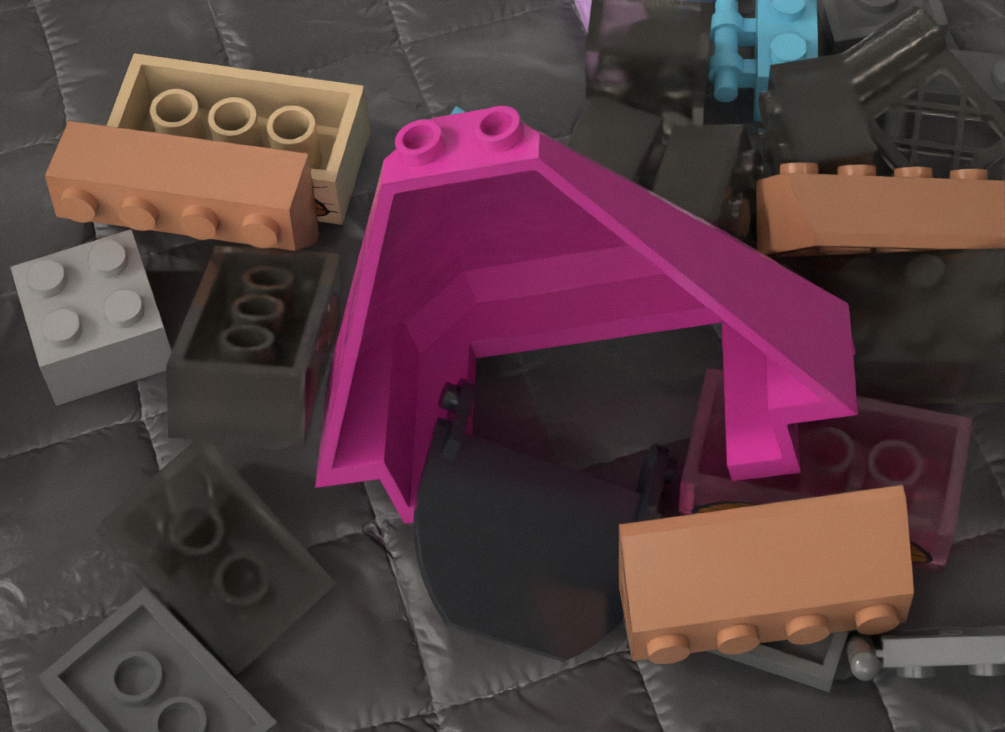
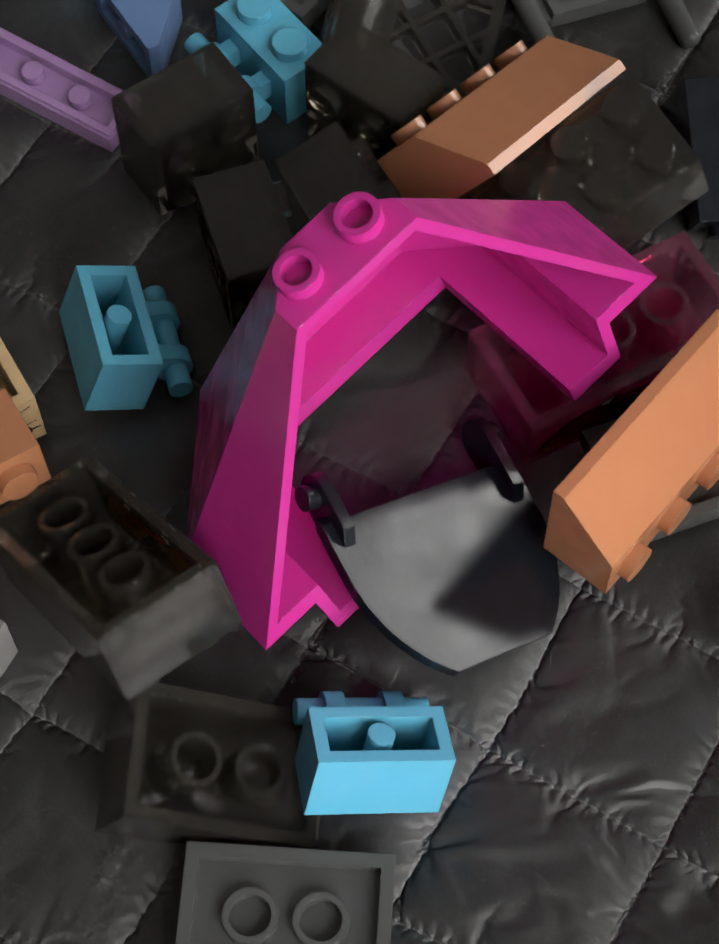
camera: 45 degrees left, 5 degrees up
(327, 629) = (371, 754): none -> medium azure brick

